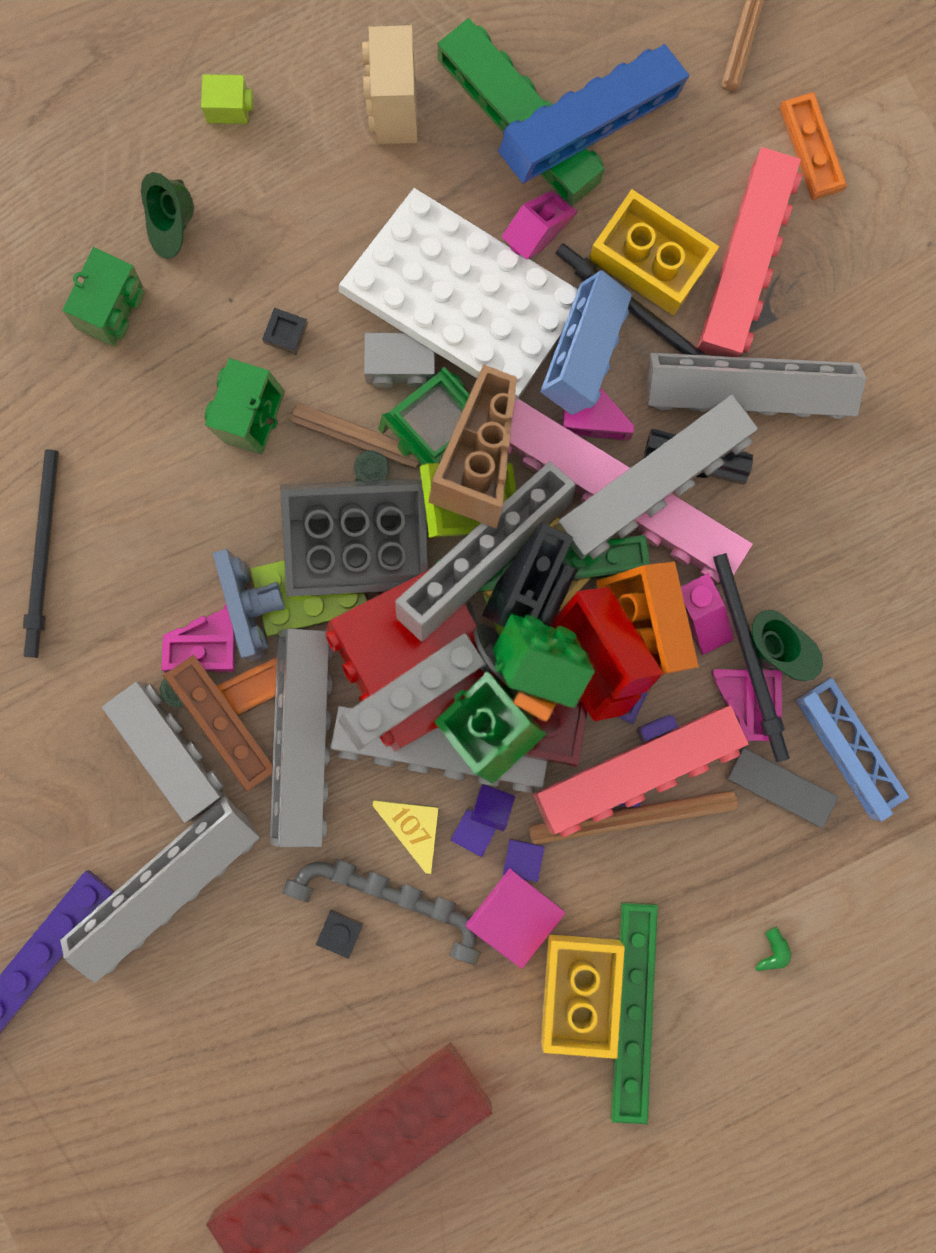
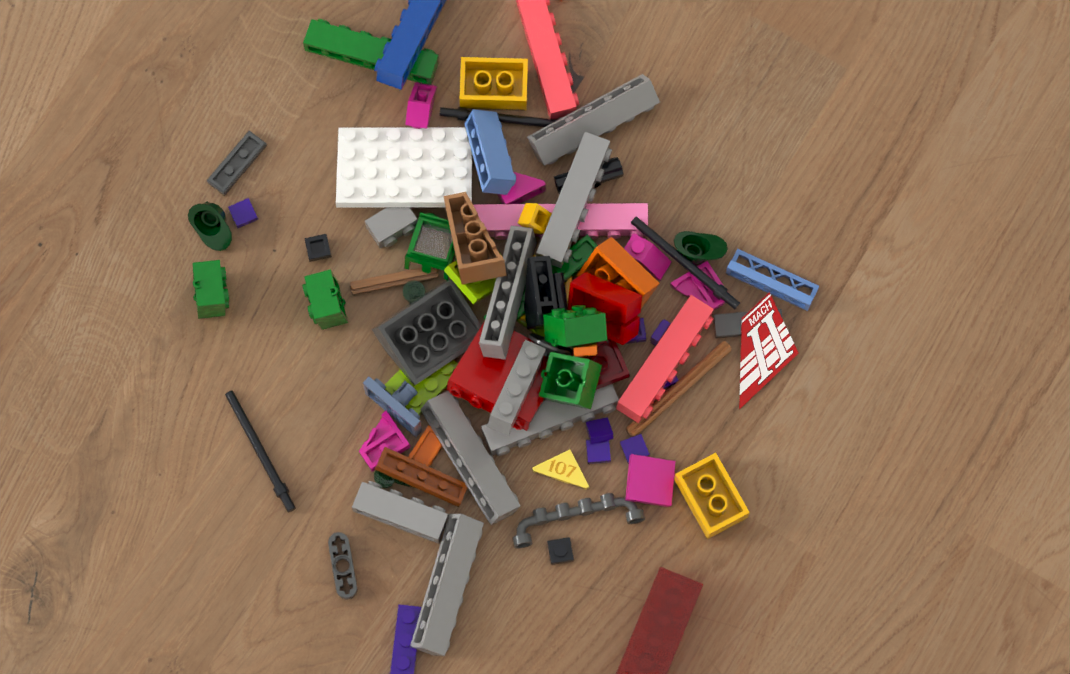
camera: 30 degrees left, 10 degrees down
(47, 800) = (345, 548): none -> dark grey beam
(220, 225) = (243, 213): none -> dark purple tile
(226, 99) = (203, 142): lime brick -> none
(255, 154) = (236, 163): none -> dark grey tile
(390, 84) = (296, 81): tan brick -> none
(588, 470) = (534, 217): none -> yellow plate
(633, 1059) = (760, 512): green tile -> none
(781, 951) = (804, 409): green animal -> none
(782, 835) = (764, 348): none -> sticker

